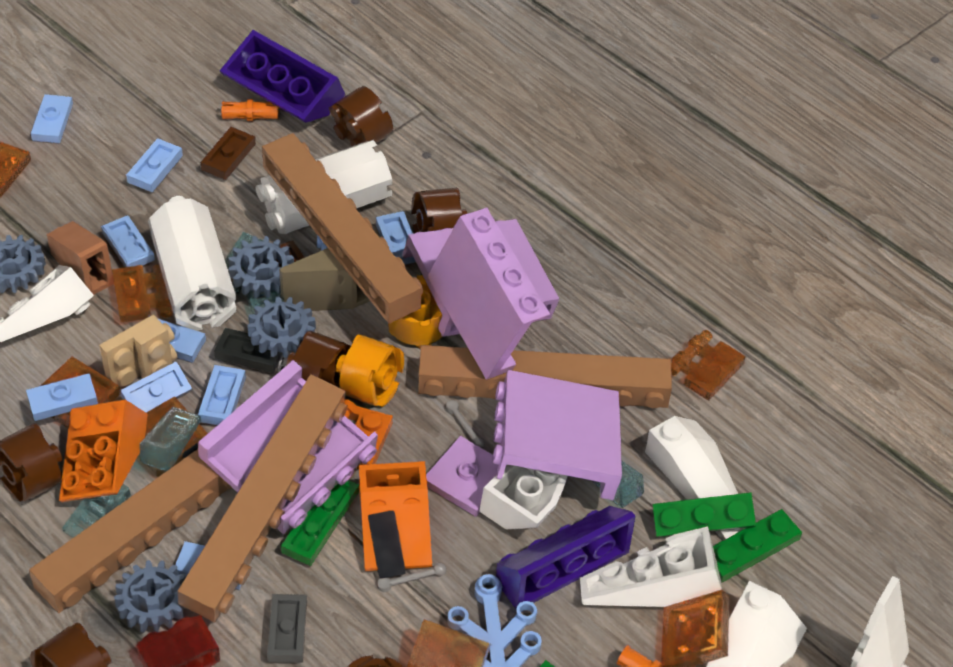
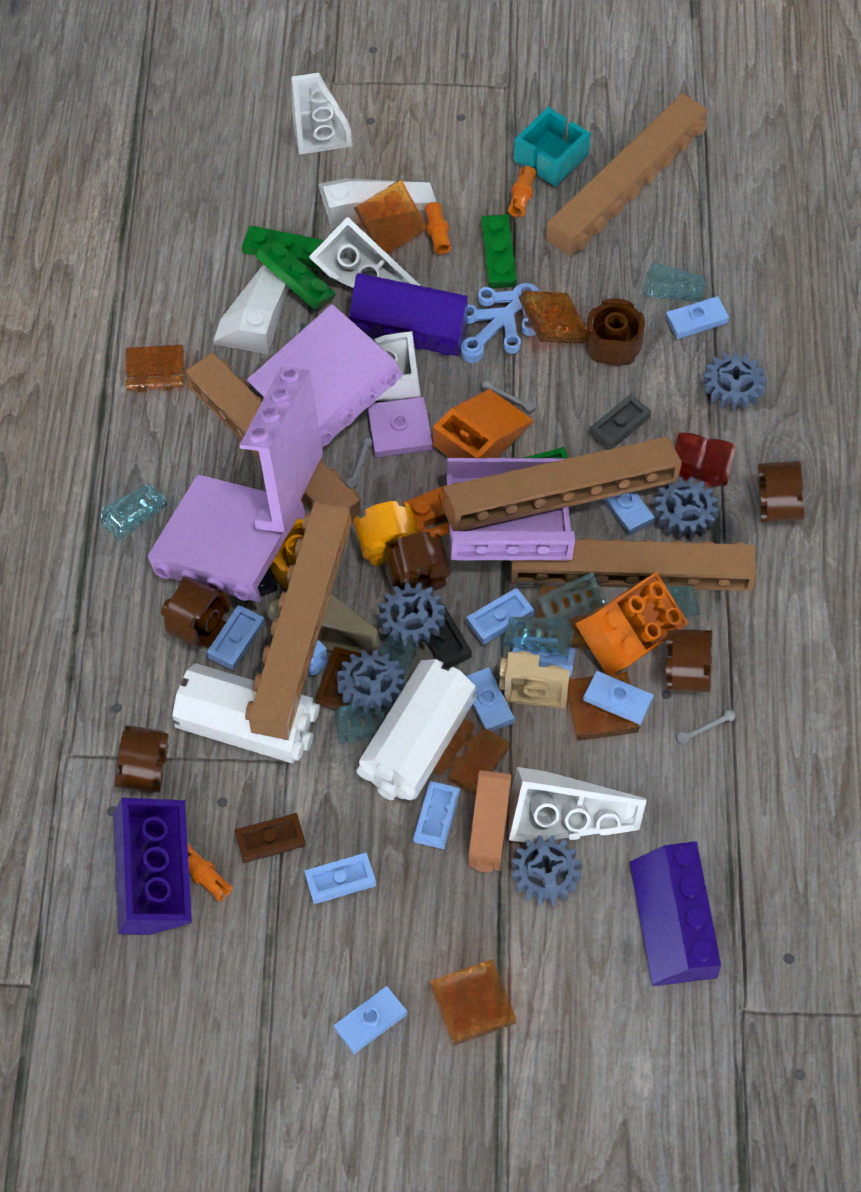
camera: 130 degrees left, 10 degrees up
(149, 395) = (547, 645): none -> clear light blue slope
(386, 544) = (507, 413): black sticker -> none
(579, 241) = (119, 523): none -> clear light blue slope

